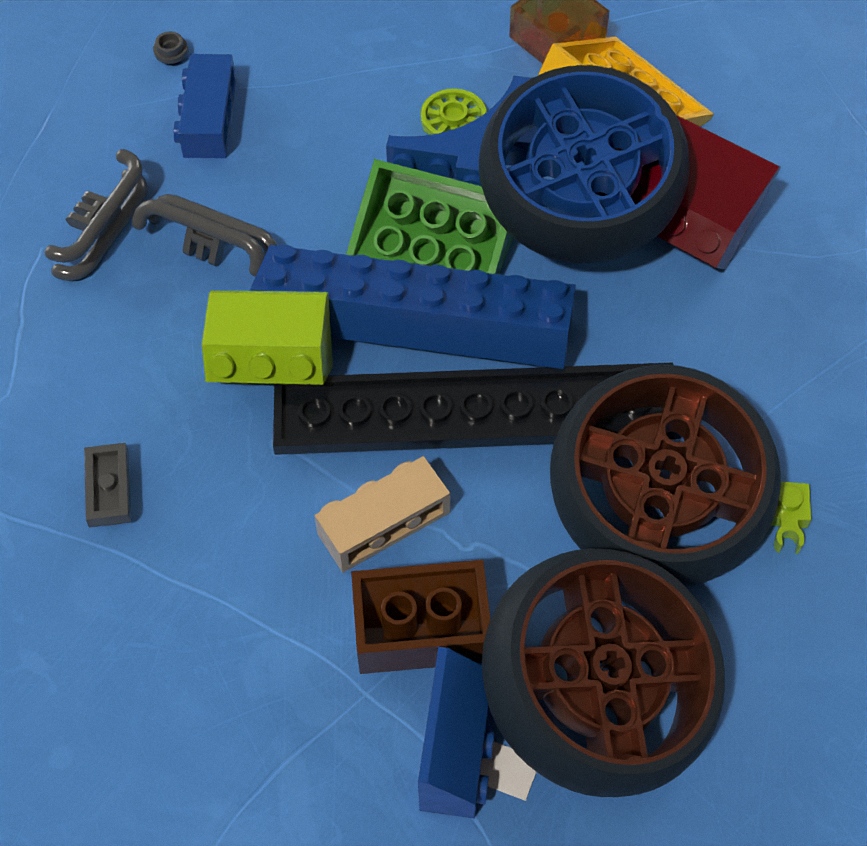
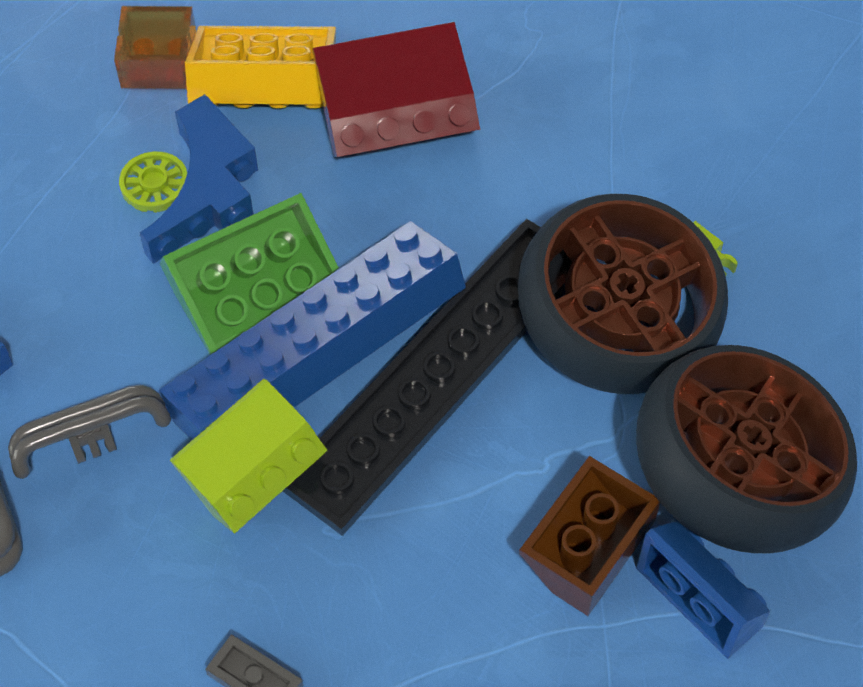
camera: 50 degrees left, 0 degrees up
(382, 513) = (470, 498): tan brick -> none
(508, 772) = (752, 572): white sticker -> none
(601, 113) = (327, 69): blue wheel -> none

